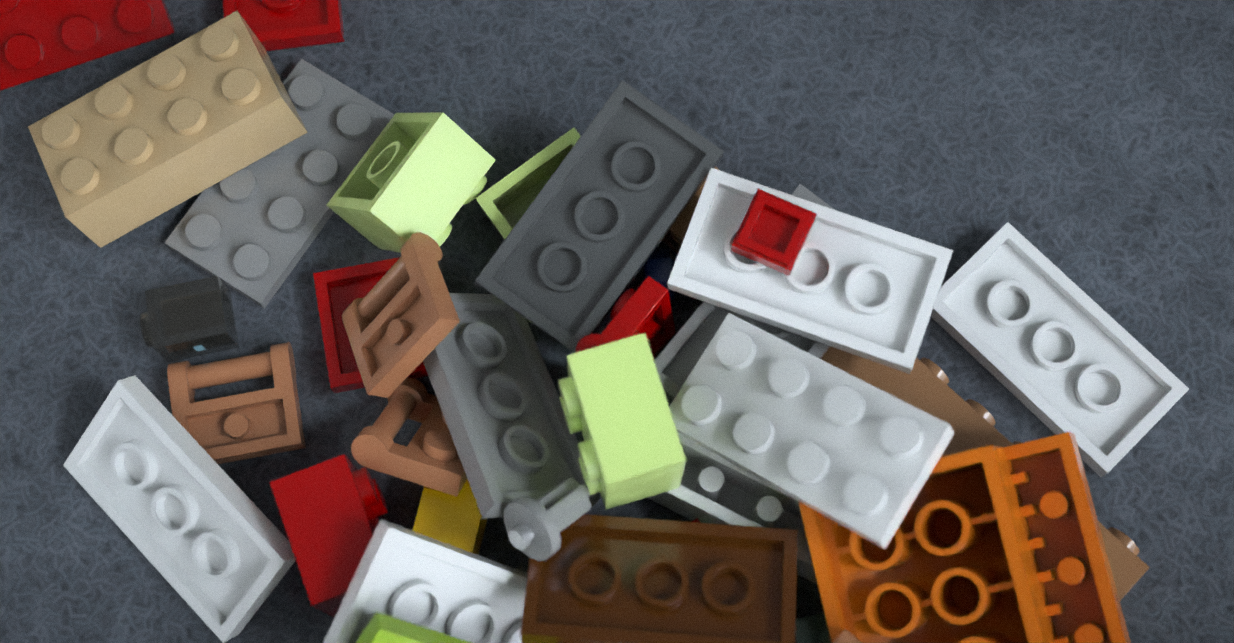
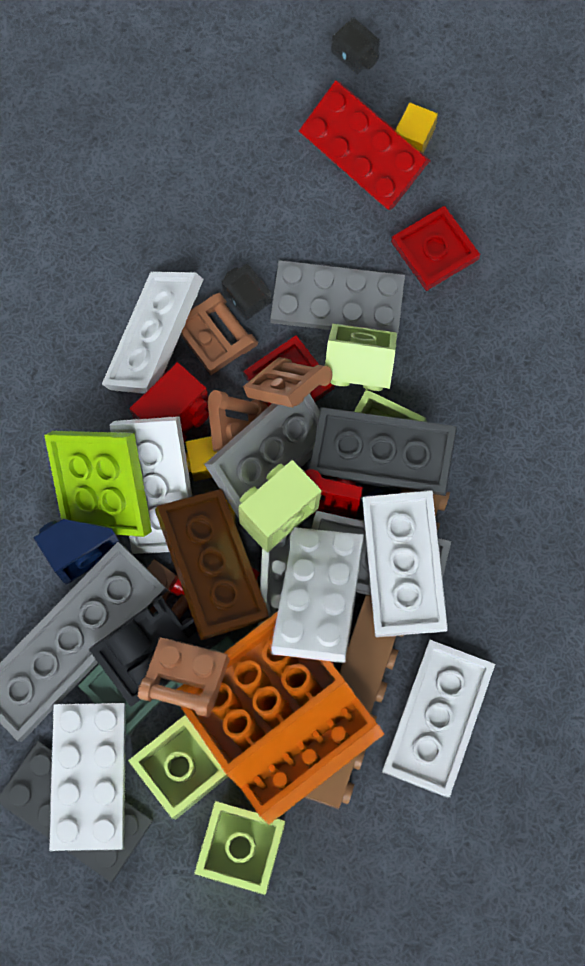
camera: 65 degrees right, 0 degrees up
(166, 130) = (332, 232): tan brick -> none
(537, 524) = (213, 490): light grey piece -> none
(773, 232) = (411, 535): red tile -> none

